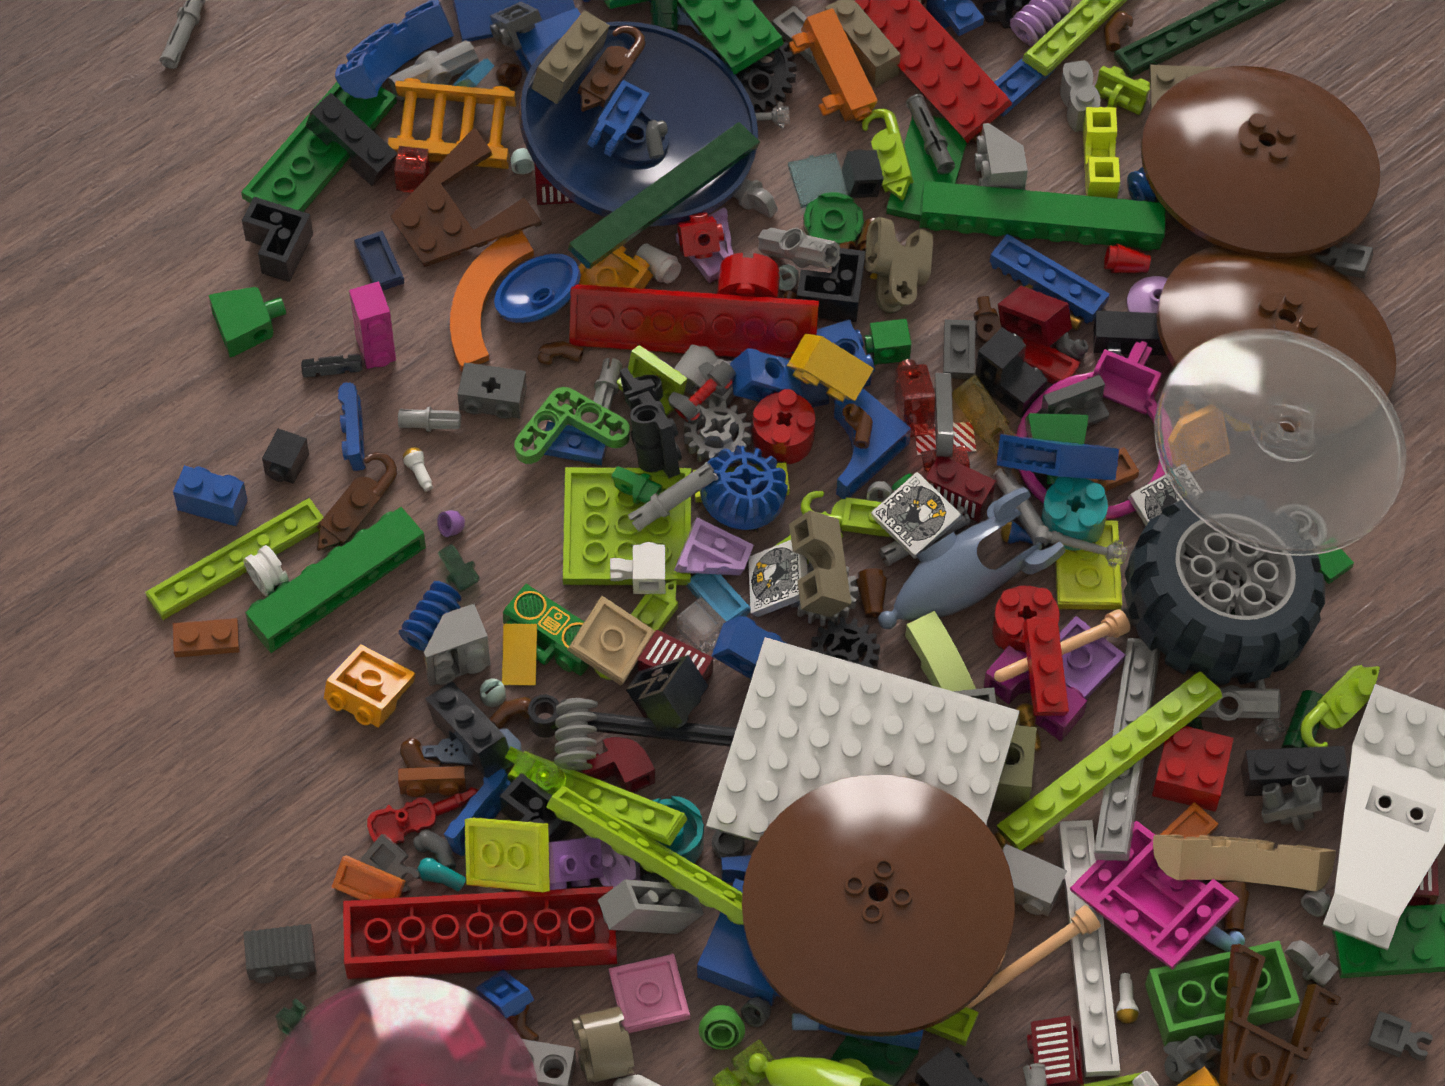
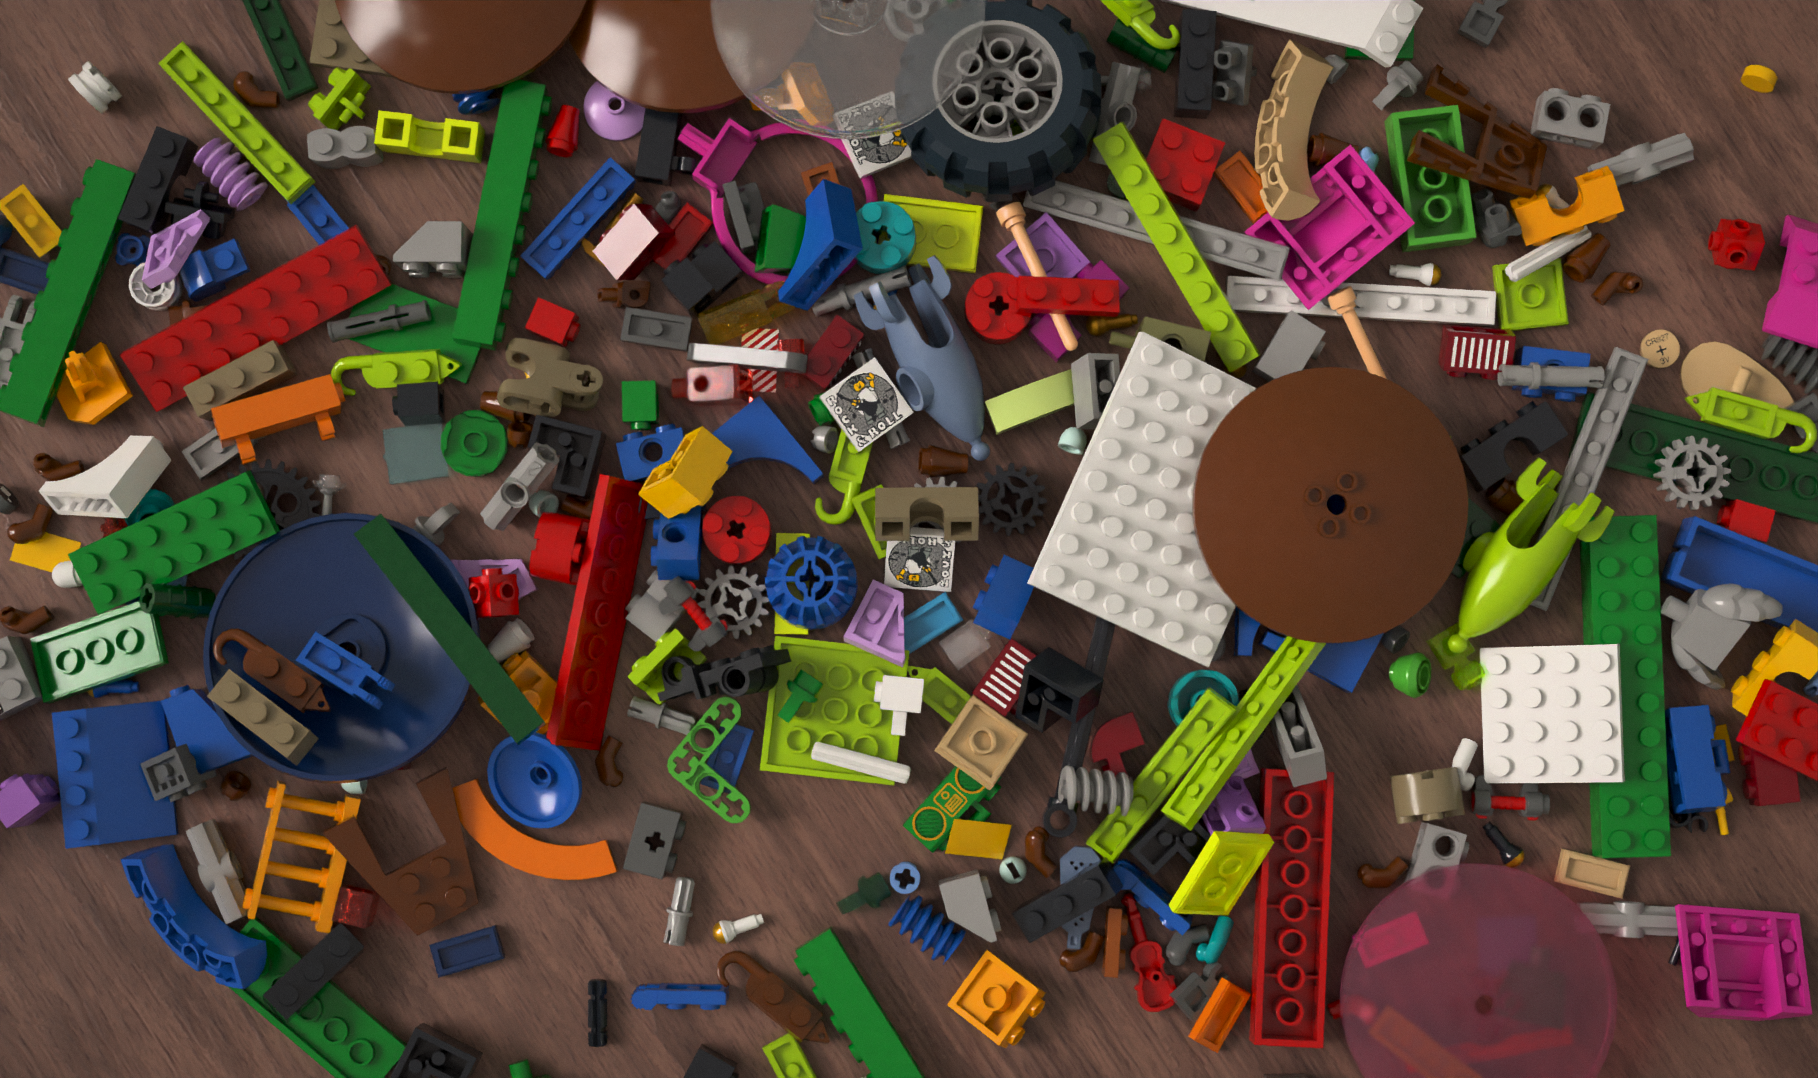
camera: 80 degrees left, 25 degrees up
(372, 325) = (573, 967): dark pink brick -> none
(450, 523) = (810, 898): medium lavender hinge -> none
(475, 74) = (245, 831): dark azure tile -> none
(478, 588) = (910, 886): none -> medium blue bush
(505, 994) = (1361, 887): blue plate -> none
(547, 775) = (1117, 839): clear neon green plate -> none
(581, 545) = (860, 762): none -> white axle
(649, 993) = (1362, 742): bright pink tile -> none
(654, 132) = (376, 633): dark grey arm -> none
(673, 496) = (828, 672): light grey pin -> none
(860, 422) = (752, 447): reddish brown arm -> none
(951, 266) = (553, 323): none -> red brick
(1114, 553) = (931, 203): light grey piece -> none

